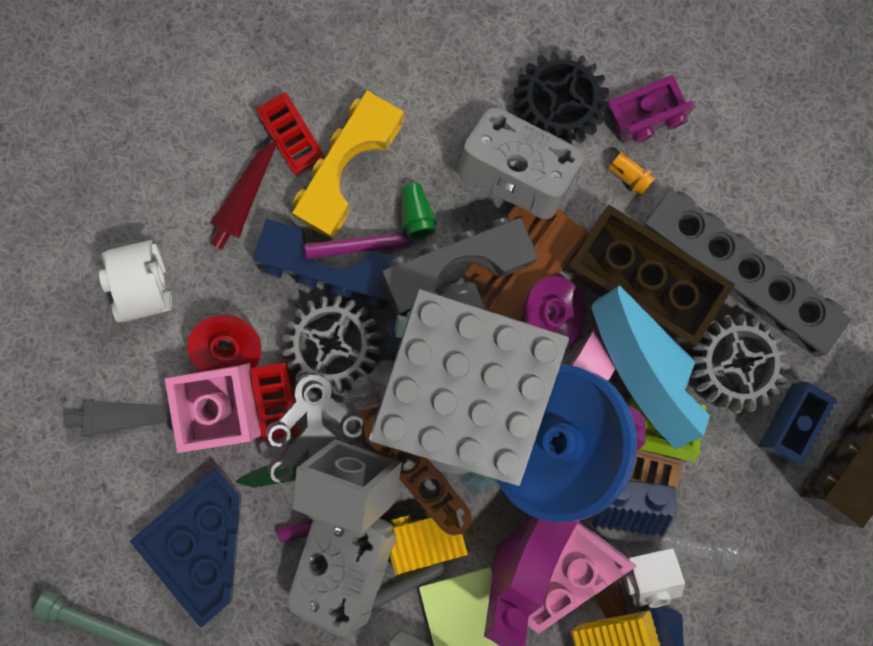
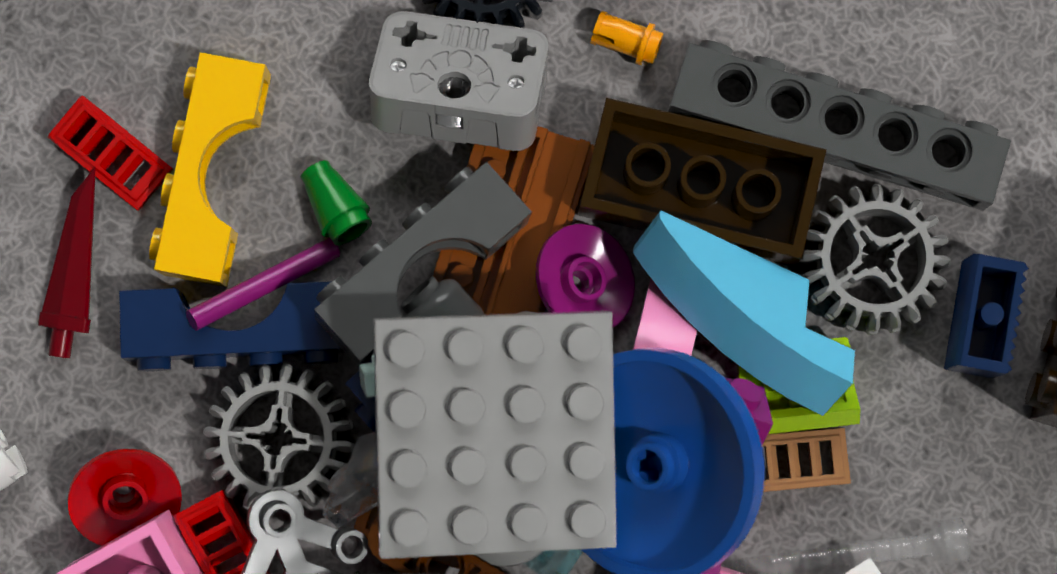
camera: 15 degrees left, 0 degrees up
(641, 509) = (801, 519): dark blue brick -> none

